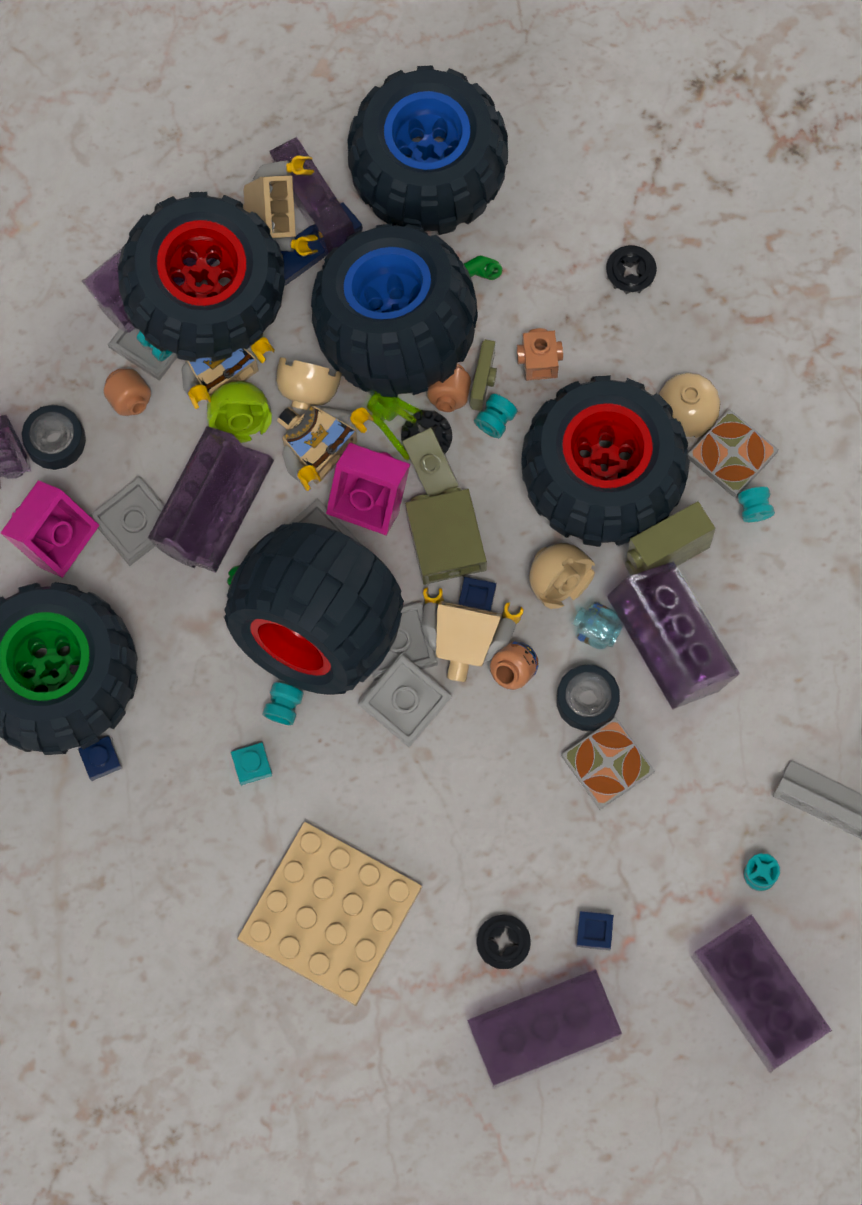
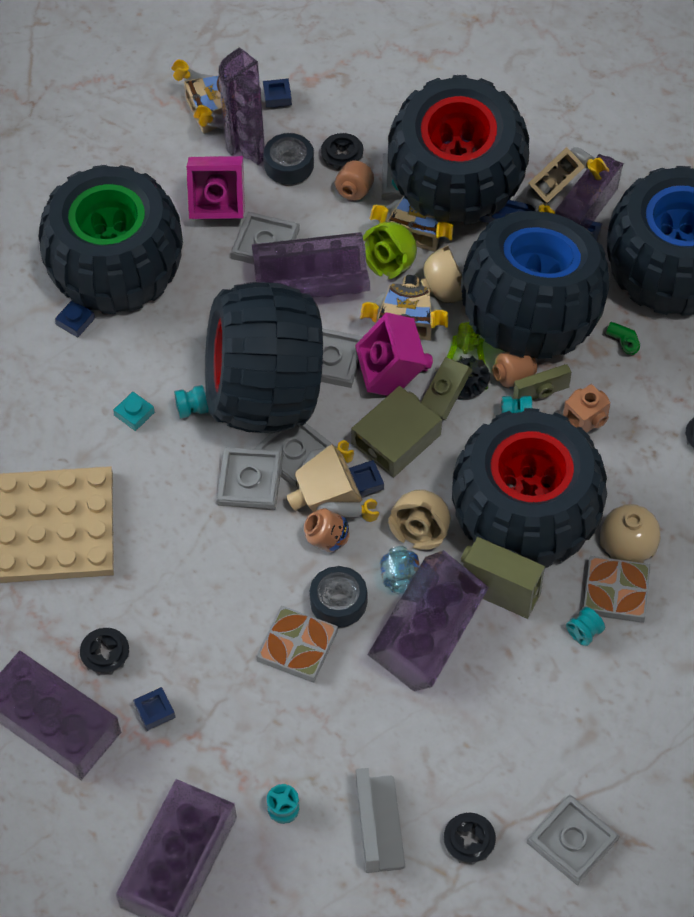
camera: 55 degrees right, 15 degrees down
(65, 373) = (341, 142): none -> black gear

